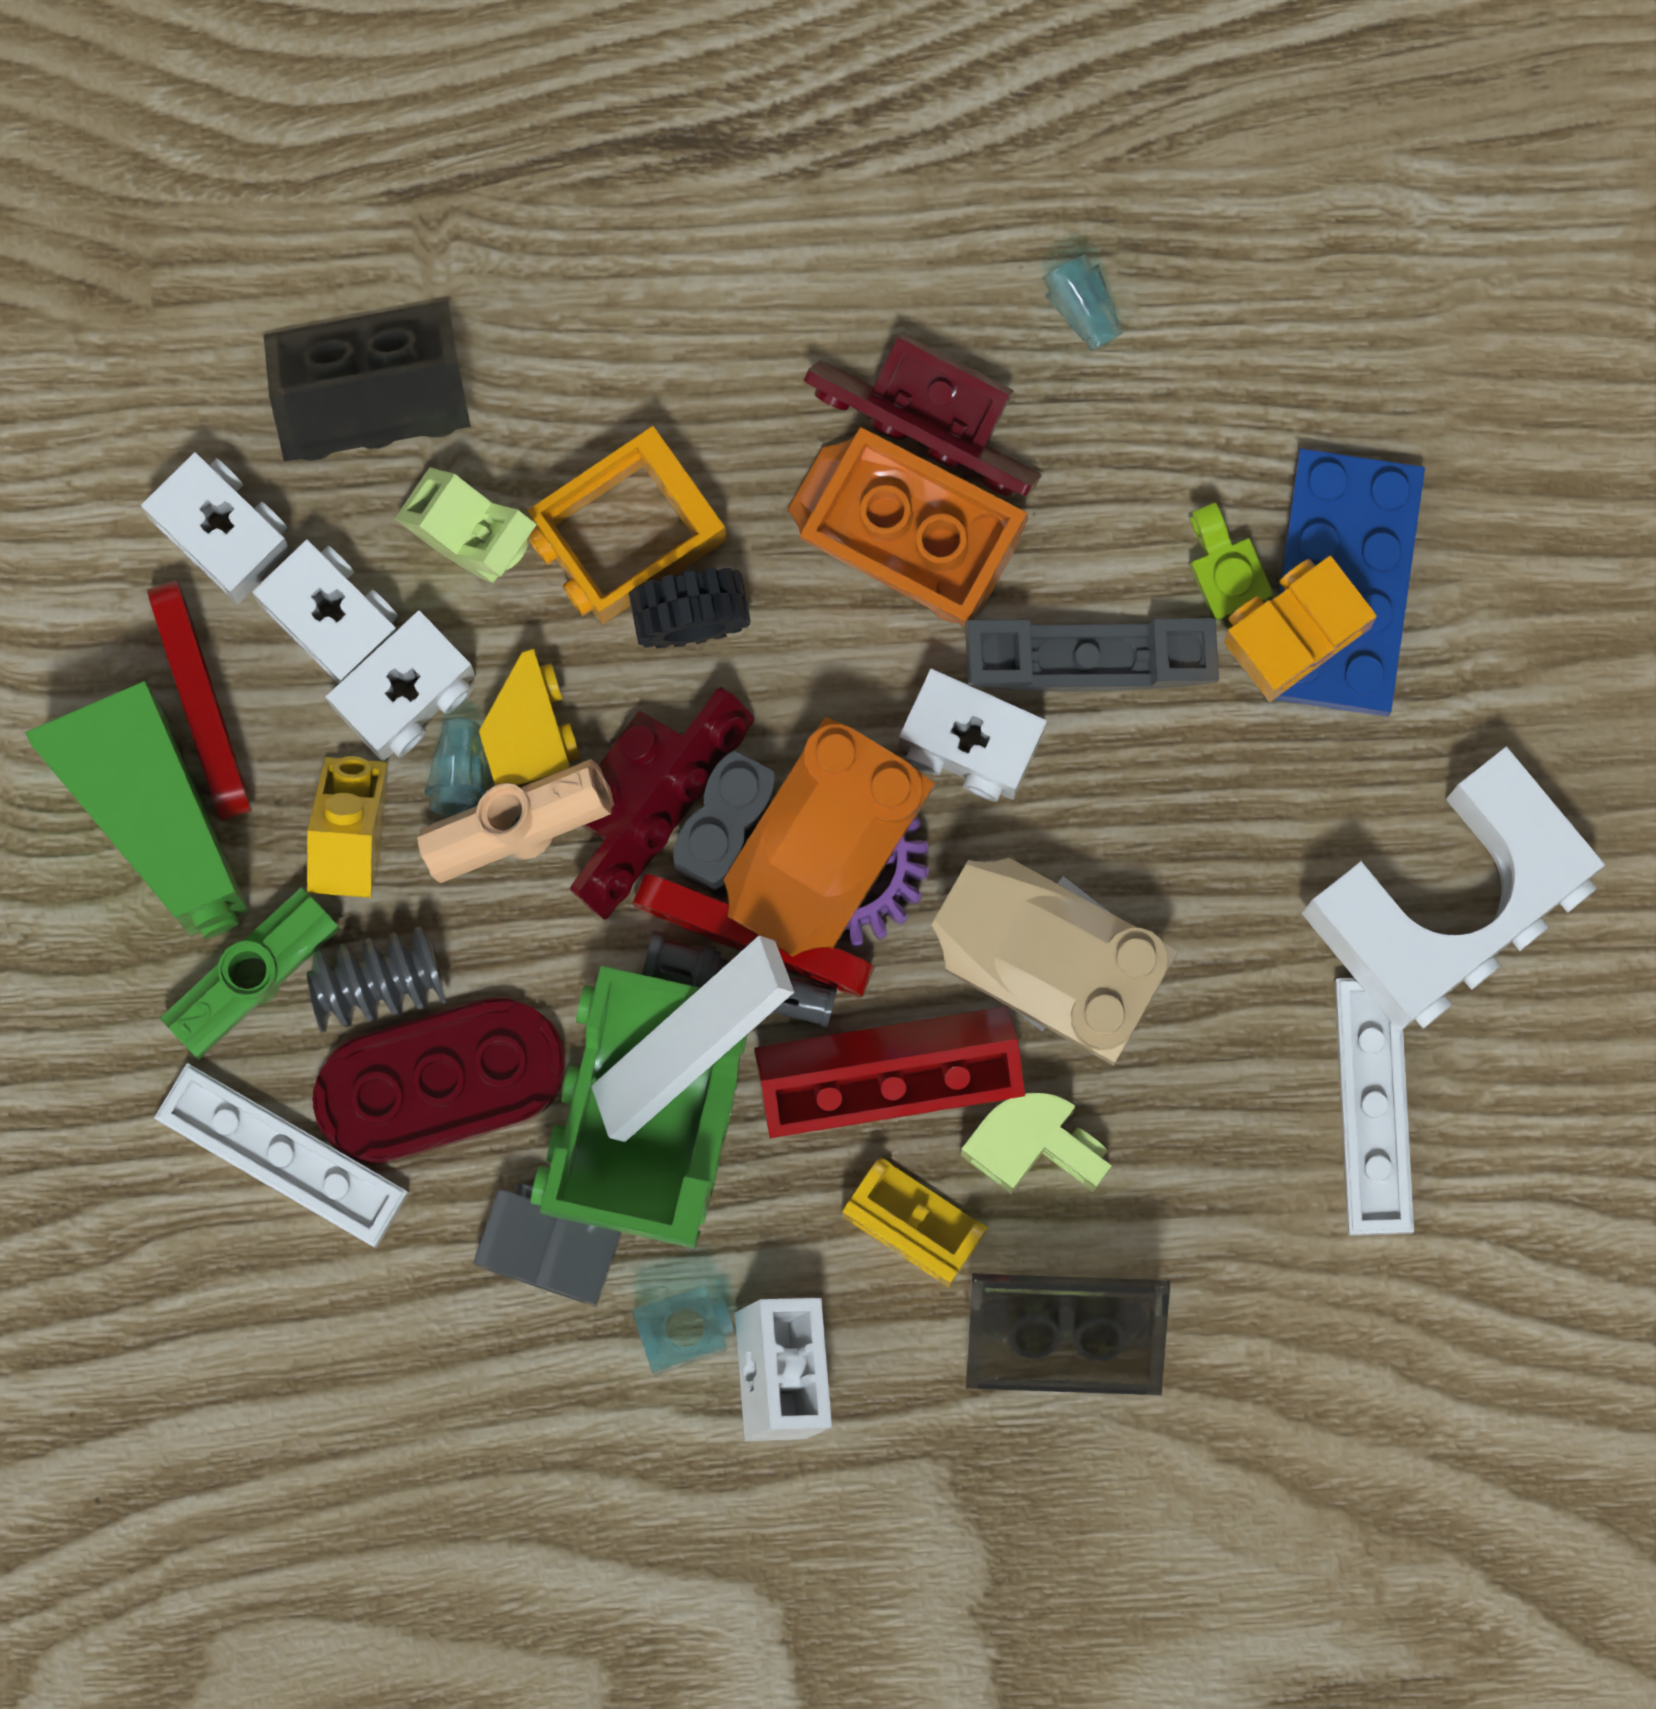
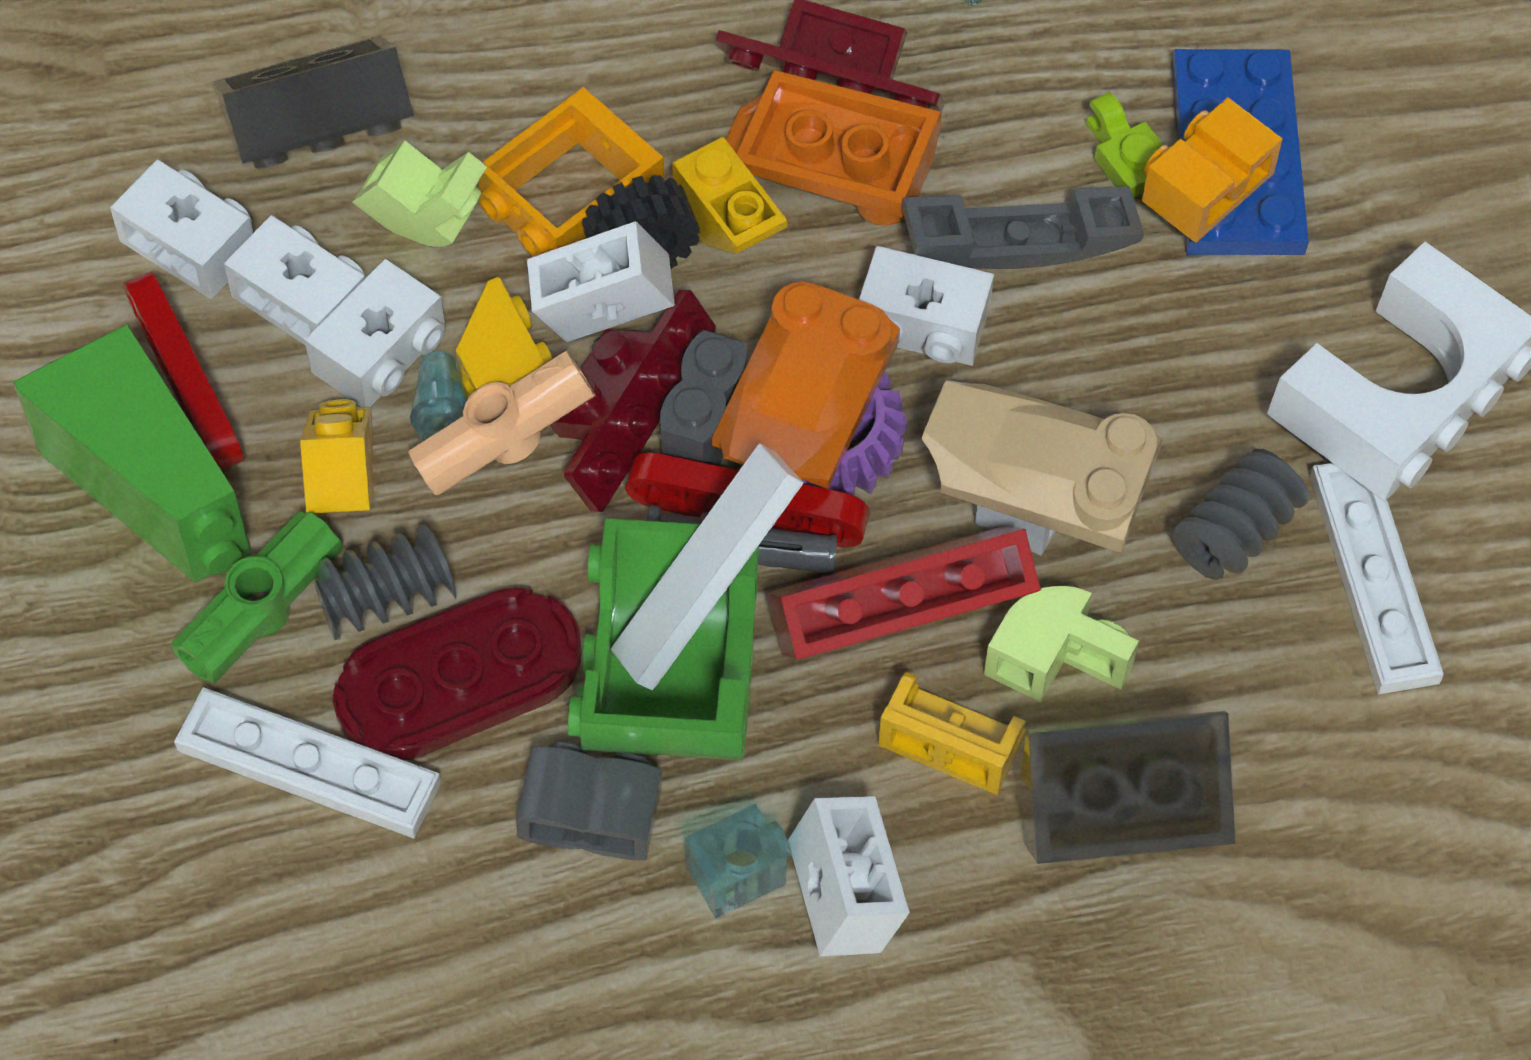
camera: 10 degrees left, 20 degrees down
(637, 673) = (600, 282): none -> white brick
(785, 586) = (726, 198): none -> yellow slope
(1249, 1028) = (1240, 514): none -> dark grey piece

